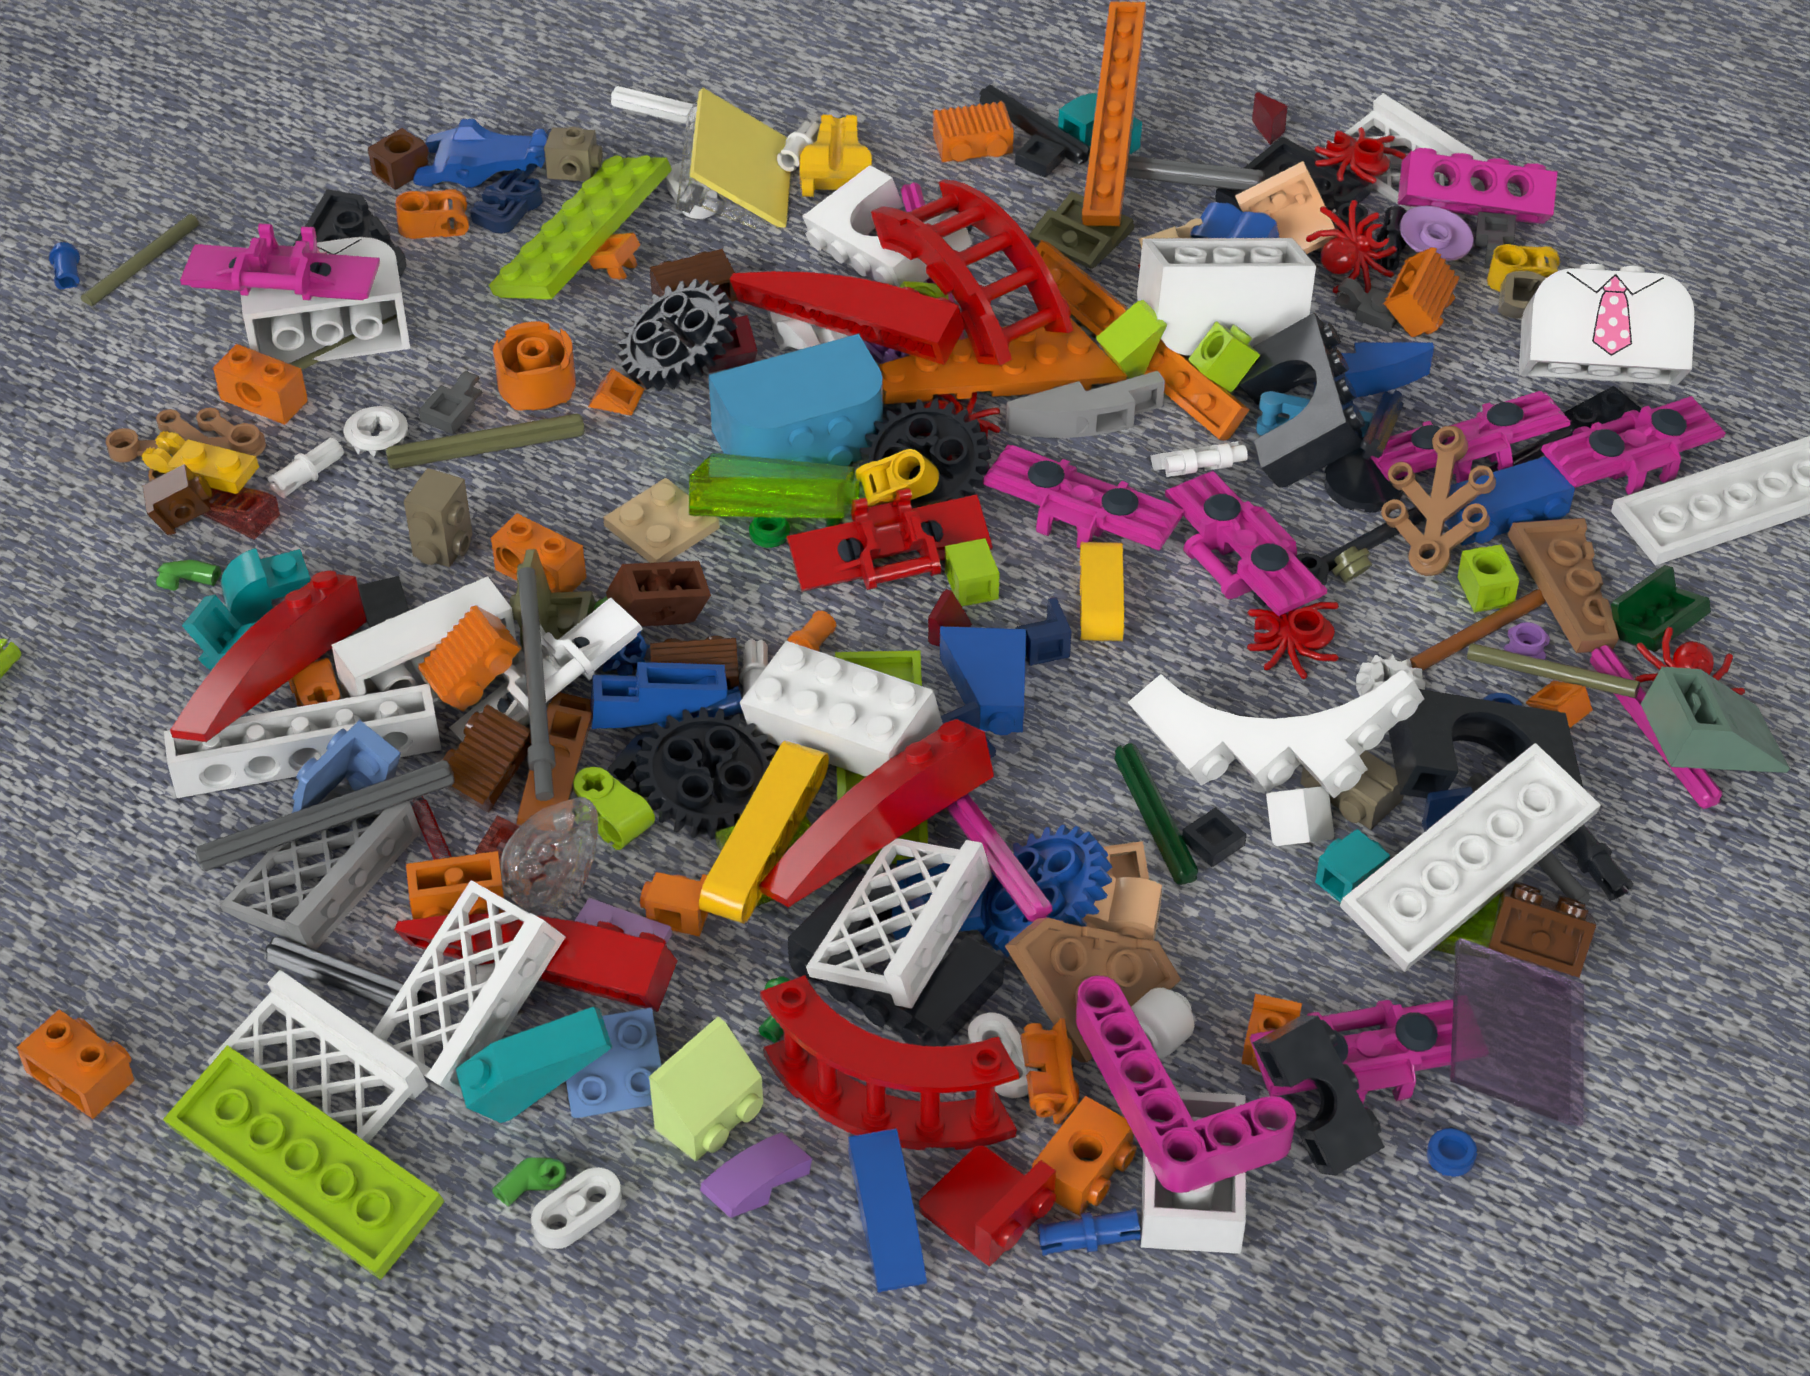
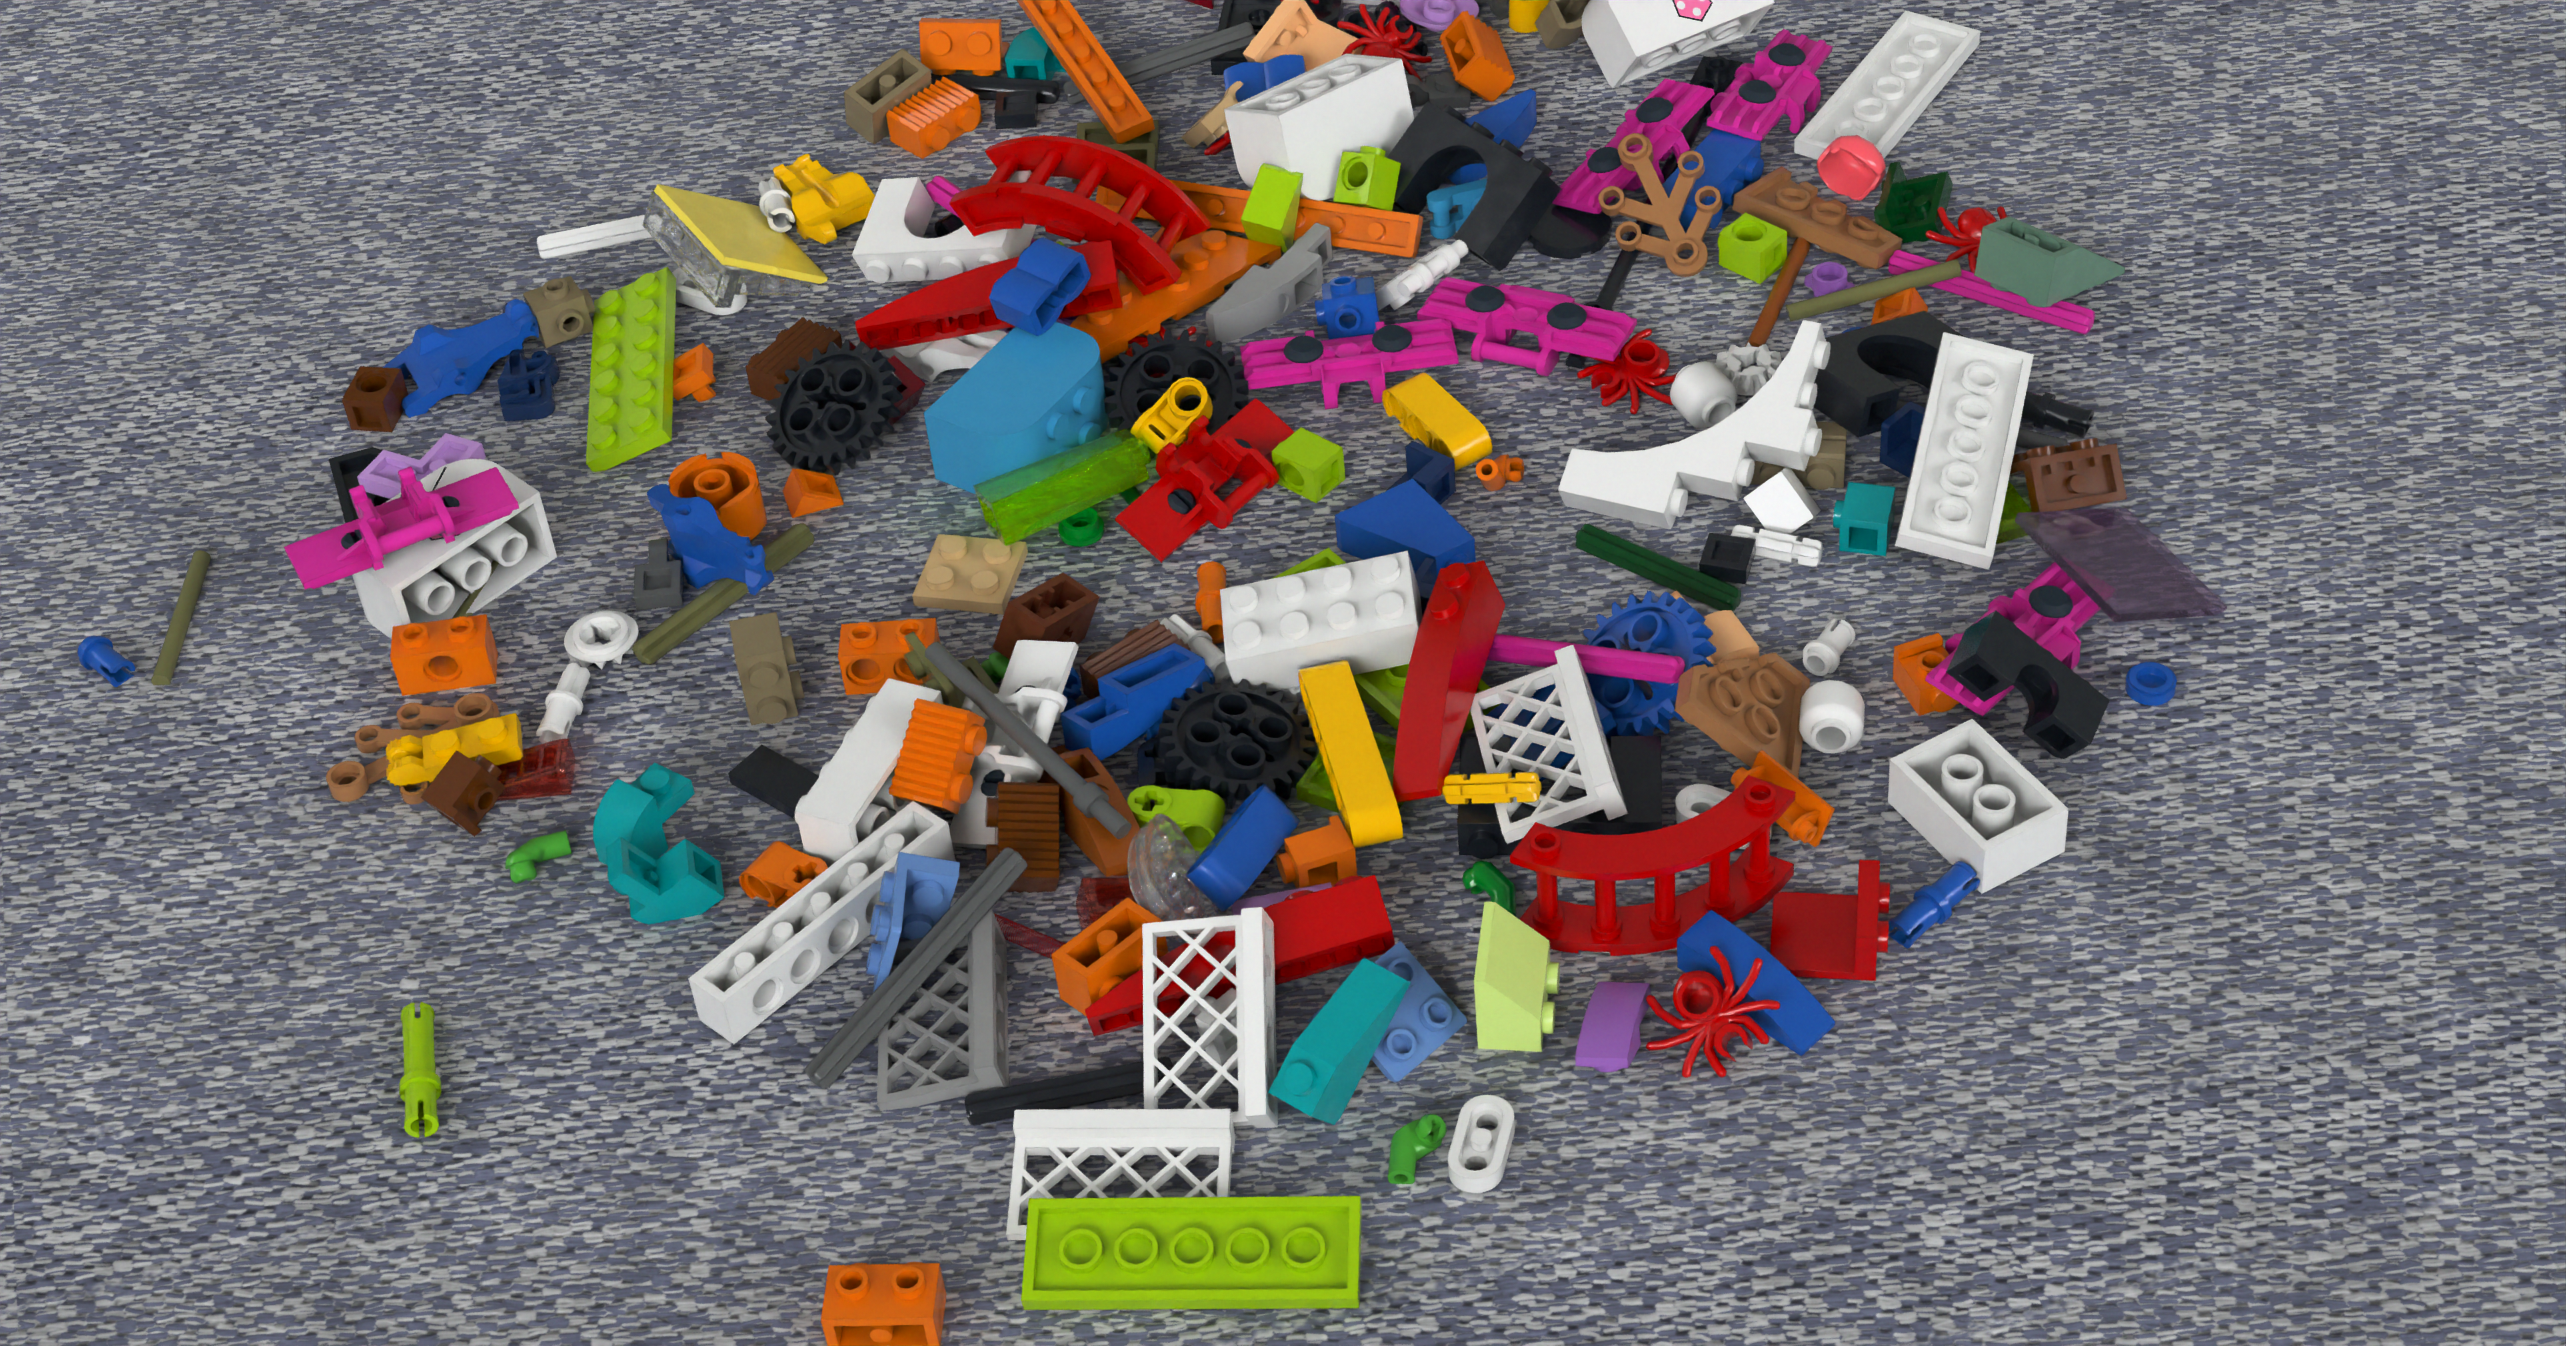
camera: 30 degrees left, 5 degrees down
(273, 653) = (727, 861): red slope -> none
(350, 223) = (382, 473): none -> lavender plate
(429, 214) = (467, 422): orange piece -> none
(491, 407) = (706, 546): none -> blue animal
(627, 860) = (1242, 848): none -> blue beam
(827, 925) = (1492, 788): none -> yellow axle
(827, 1206) = (1711, 1013): none -> red animal
(870, 316) = (1039, 286): none -> blue brick
(946, 90) = (882, 90): none -> dark tan brick
(946, 613) = (1322, 514): dark red slope -> none
(1034, 82) = (962, 45): none -> orange bracket
(1094, 1134) = (1875, 831): orange brick -> none
(1109, 660) = (1496, 472): none -> orange arm
(1123, 456) = (1348, 307): none -> blue brick
(1158, 1100) = (1914, 759): dark pink beam -> none
(1210, 964) = (1828, 648): none -> white pin
(1267, 850) = (1782, 546): none -> white axle
(1323, 683) = (1703, 394): none -> white head
(1352, 563) = (1628, 293): olive plate -> none
(1381, 425) = (1563, 175): black axle -> none
(1634, 549) = (1851, 166): none -> coral hair

